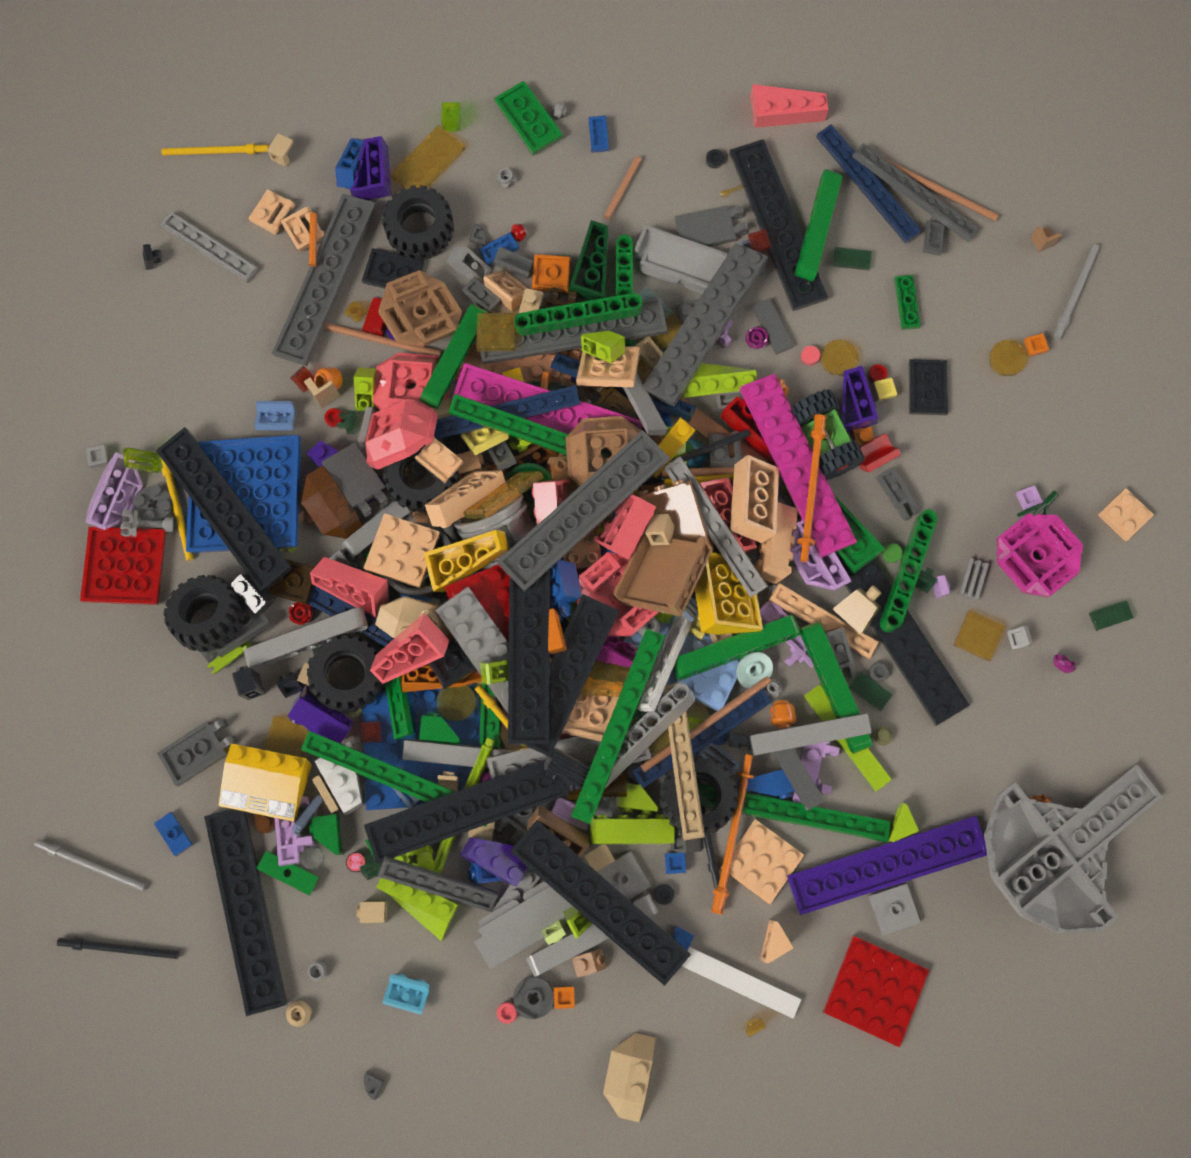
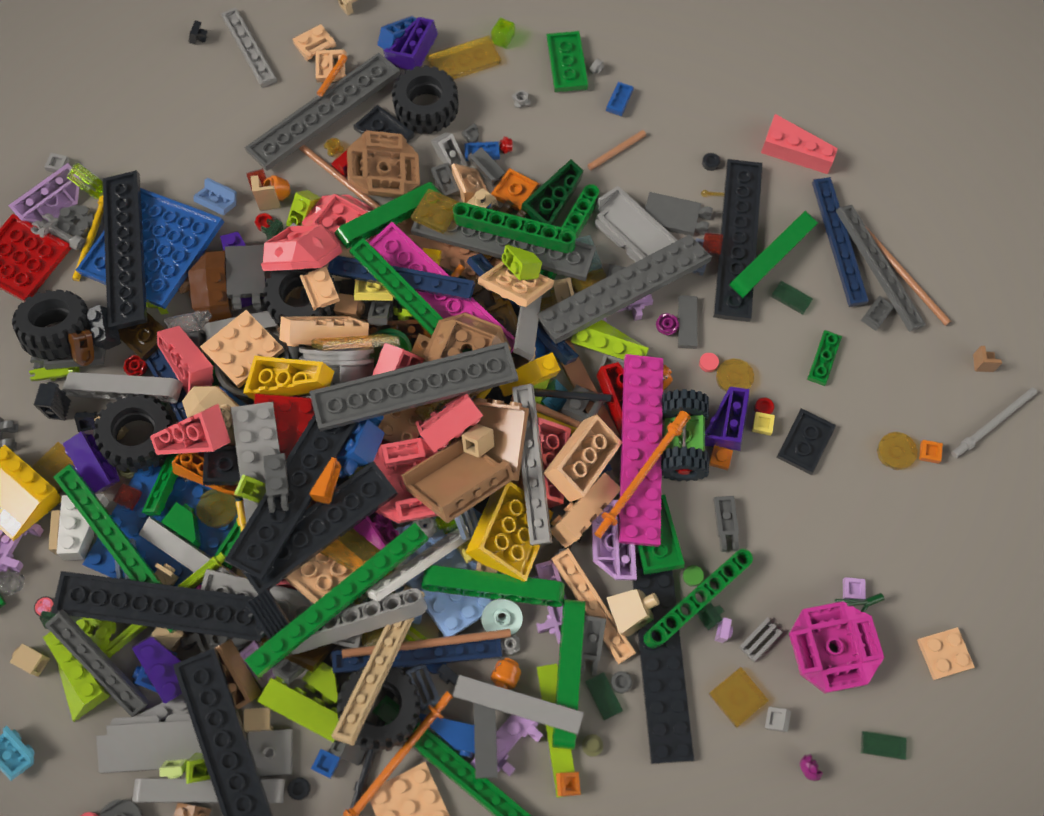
camera: 25 degrees right, 10 degrees down
(252, 625) = (83, 354): none -> reddish brown plate
(307, 815) = (27, 541): sand blue tile -> none
(327, 547) = (190, 321): none -> clear bracket
(328, 832) = (37, 567): green slope -> none
(512, 653) = (276, 480): none -> dark grey hinge
(877, 453) = (725, 475): red panel -> none
(881, 776) = (568, 784): none -> orange tile

